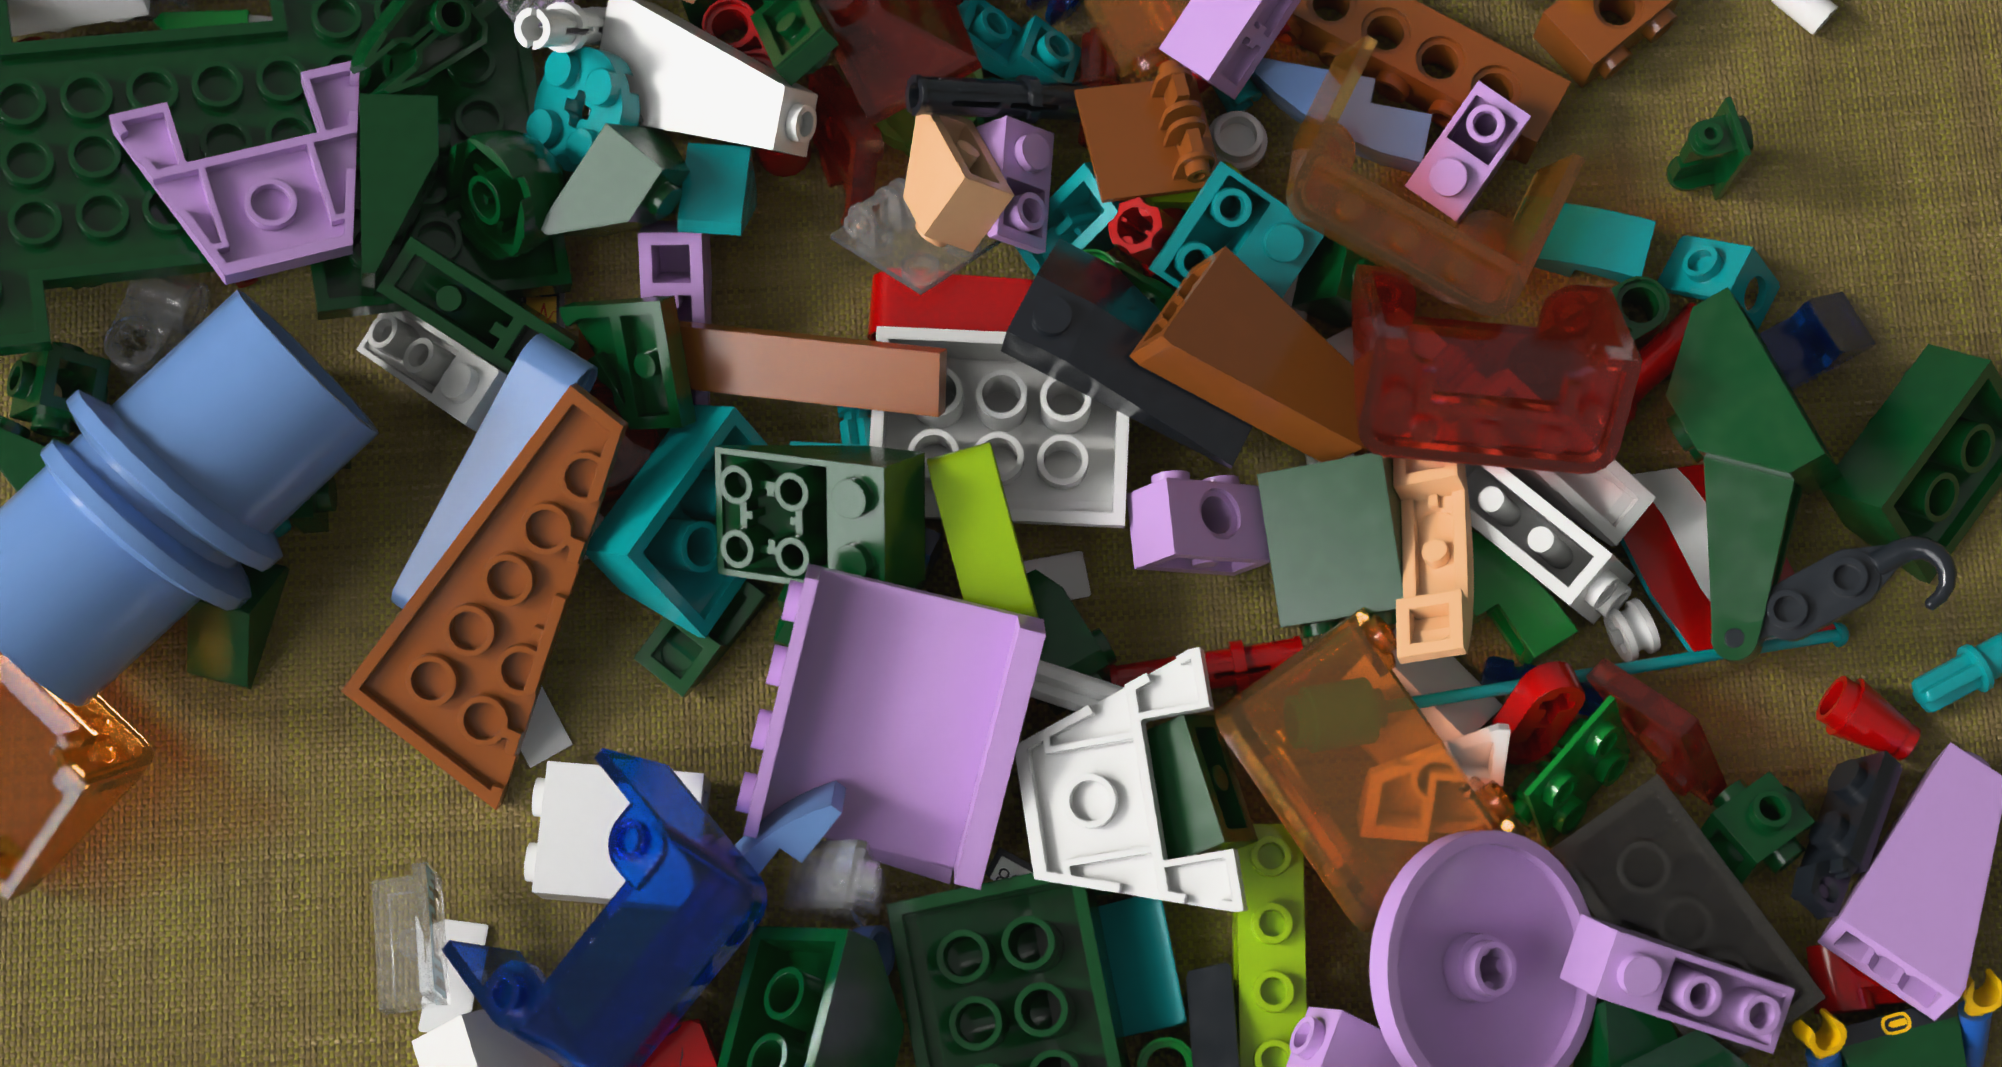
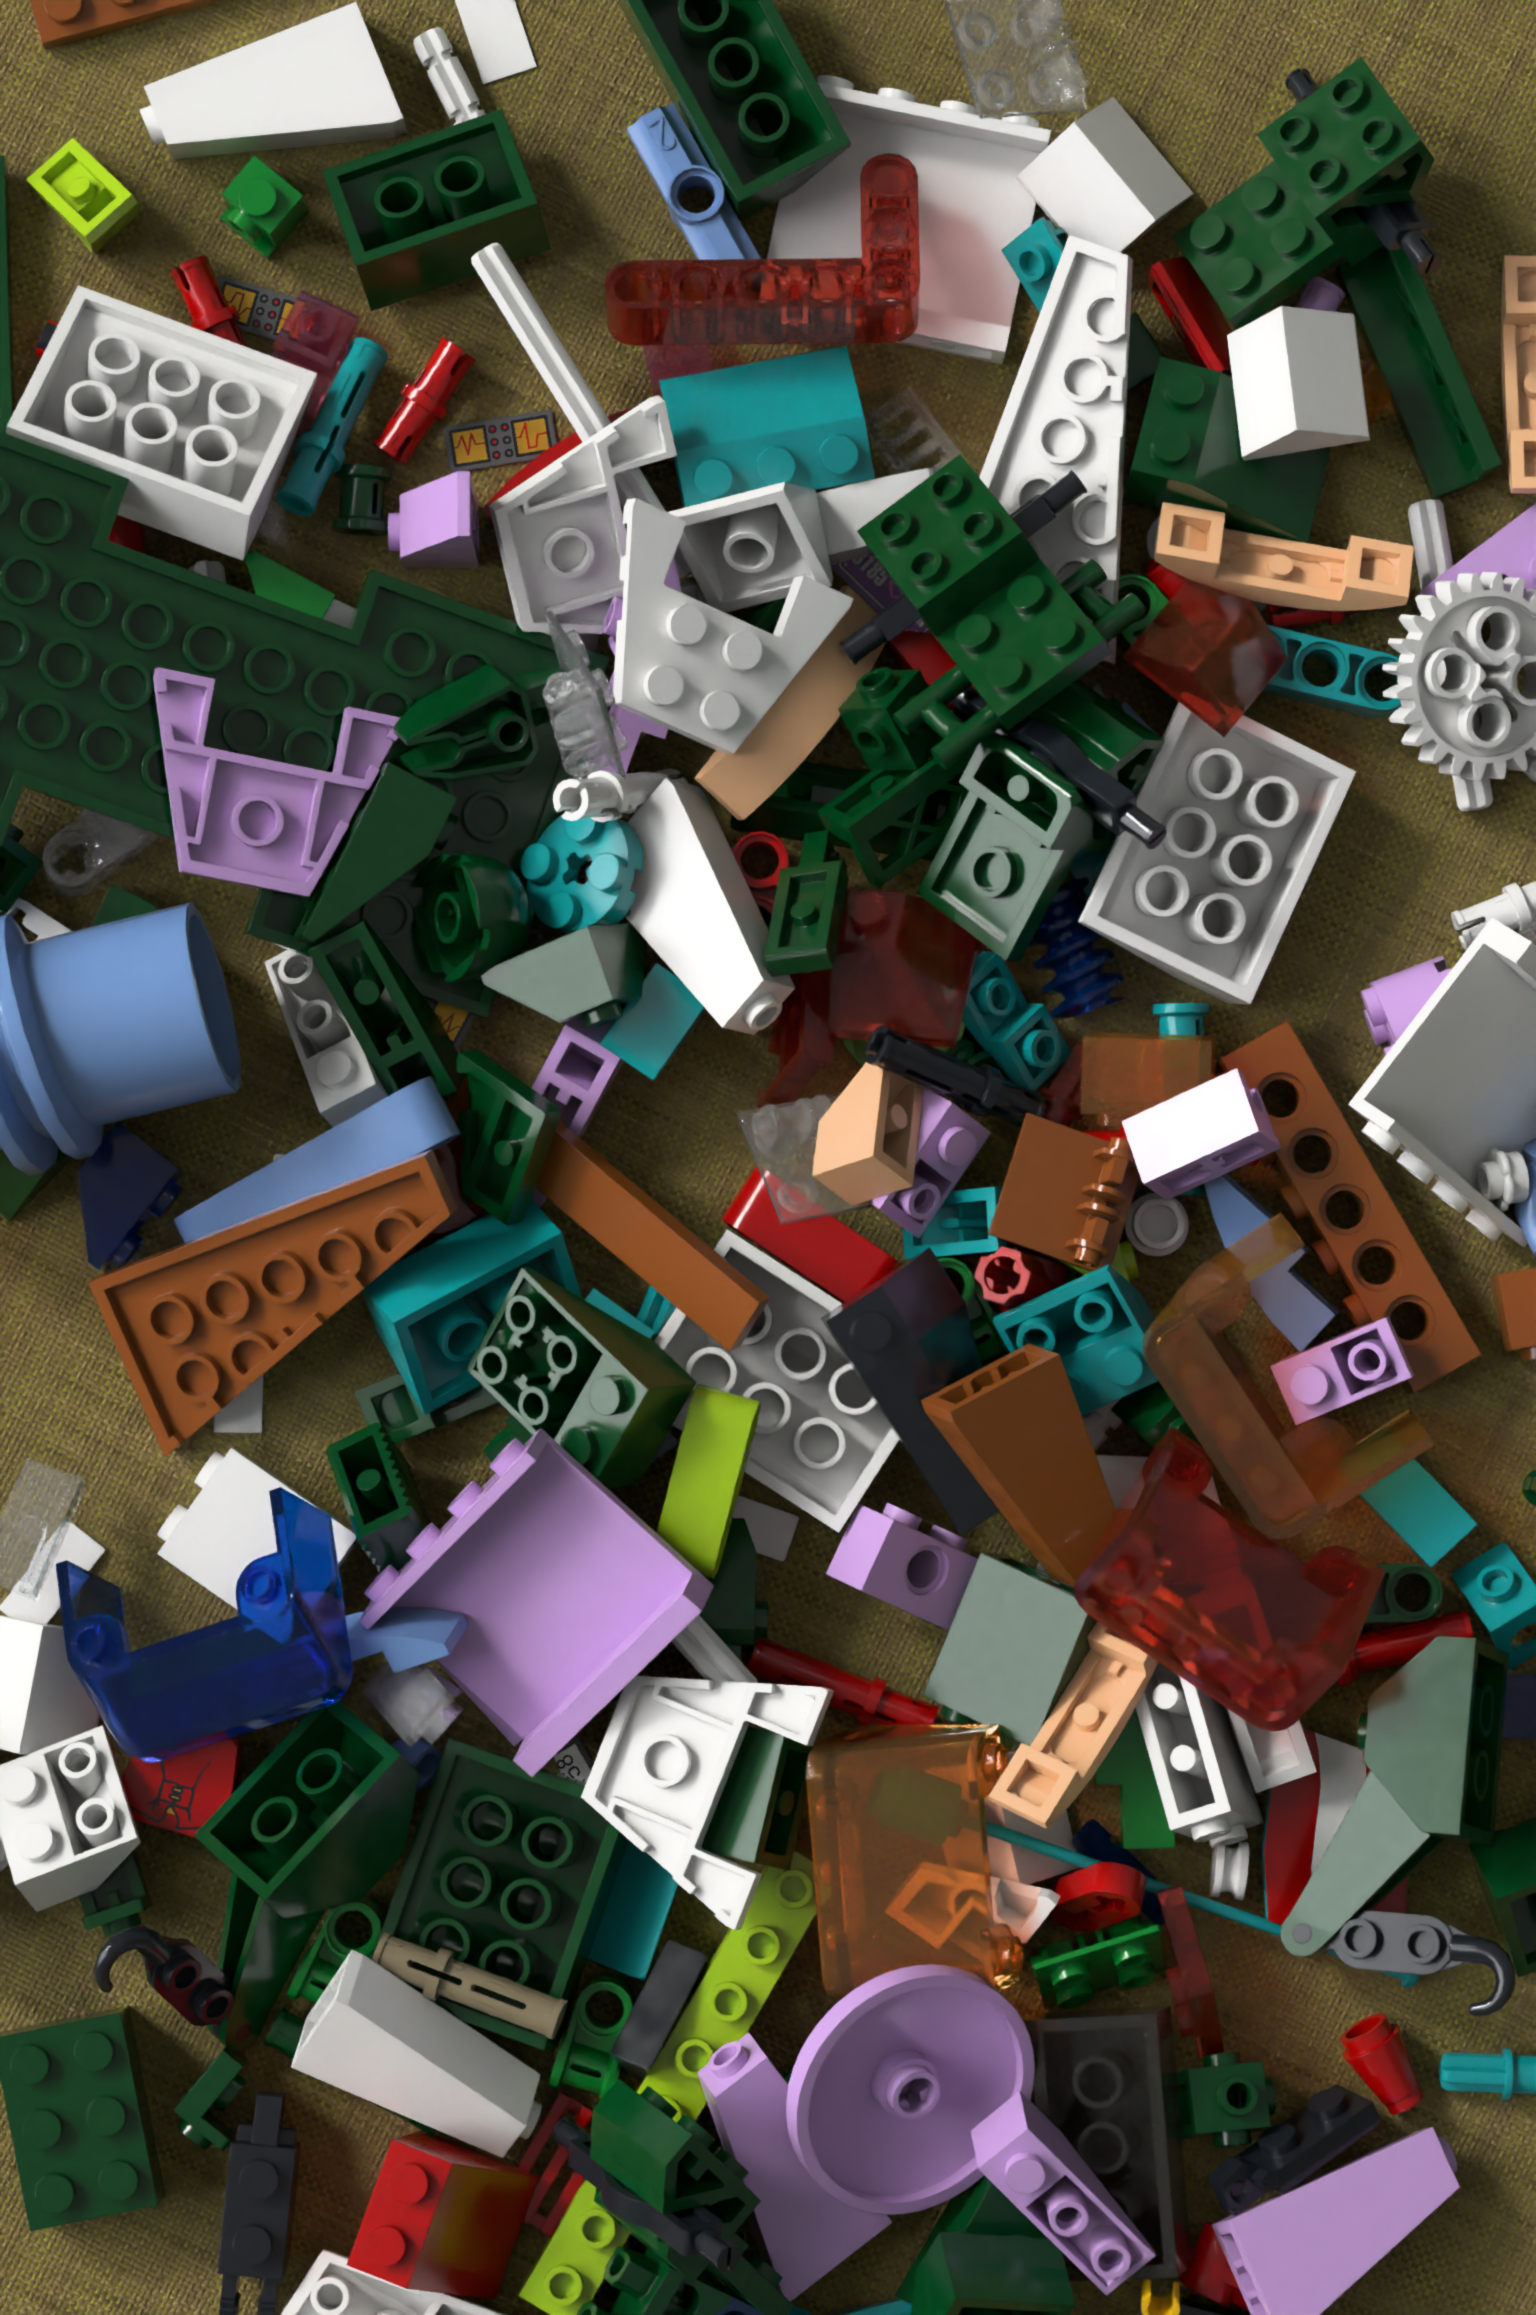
camera: 25 degrees right, 10 degrees up
(333, 599) = (120, 1192): none -> clear blue slope
(701, 724) = (378, 1494): none -> dark green brick

